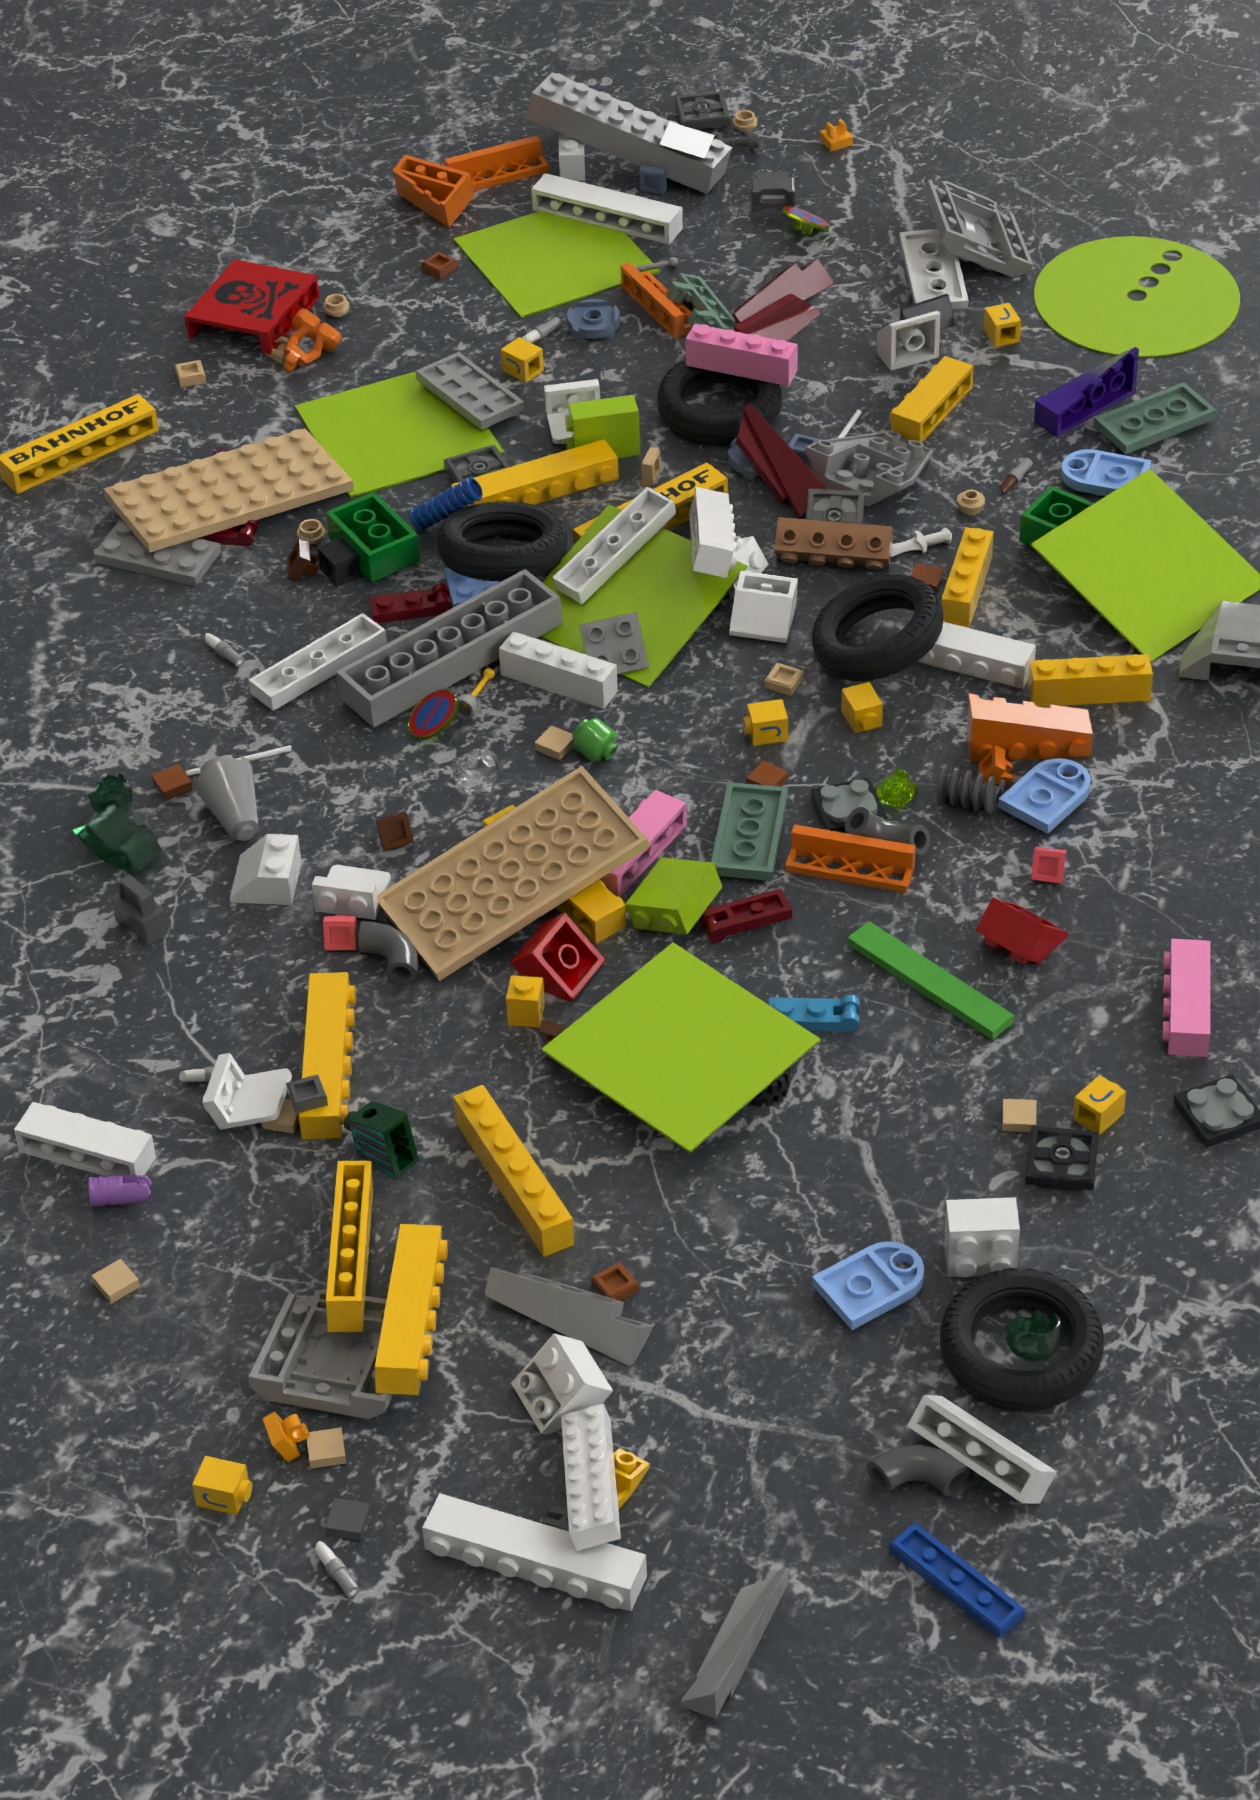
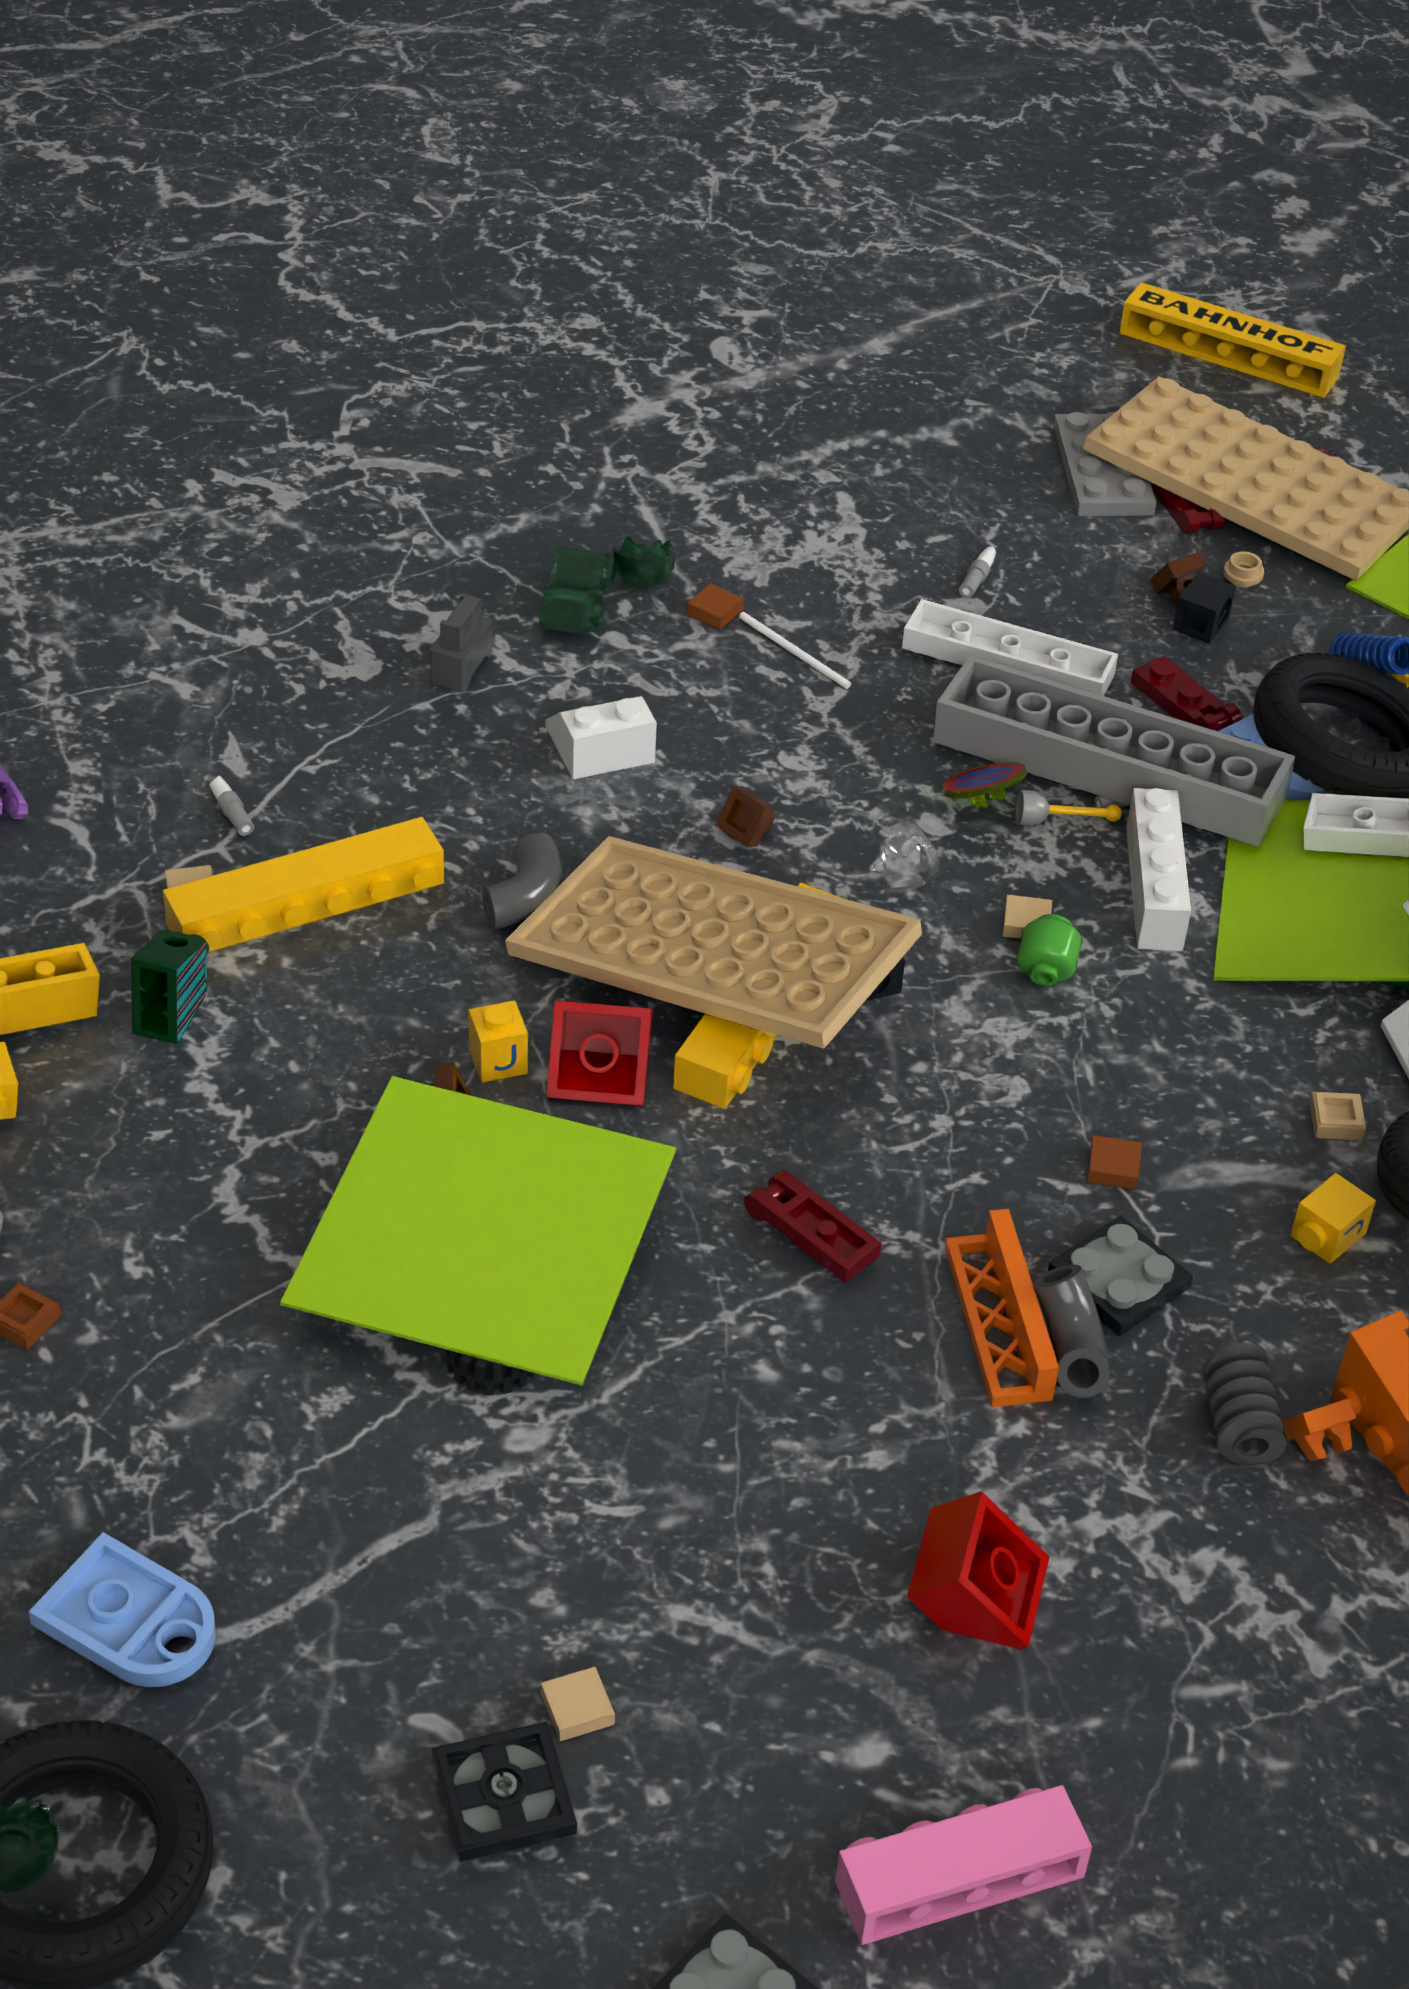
camera: 60 degrees right, 0 degrees up
(83, 1142) = (56, 735): white brick -> none
(229, 793) = (702, 651): light grey cone -> none
(244, 1099) = (191, 829): white bracket -> none
(306, 1094) = (198, 880): dark grey tile -> none
(340, 932) = (530, 819): coral tile -> none
(350, 891) = (619, 812): white bracket -> none
(376, 534) = (1265, 614): green brick -> none
(514, 1171) = (172, 1133): yellow brick -> none
(616, 641) = (1247, 906): light grey hinge -> none
(660, 821) = (885, 1063): bright pink brick -> none
(674, 895) = (784, 1126): lime brick -> none
(749, 831) = (983, 1170): sand green plate -> none
(766, 722) = (1220, 1120): yellow brick -> none
(820, 1013) = (659, 1369): dark azure plate -> none
(897, 789) = (1195, 1320): clear neon green tile -> none
(931, 980) = (809, 1497): bright green tile -> none
(981, 1236) = (246, 1720): white brick -> none
(1045, 795) = (1317, 1515): light blue plate -> none
(1048, 865) = (1150, 1565): coral tile -> none
(1099, 1105) = (643, 1806): yellow brick -> none

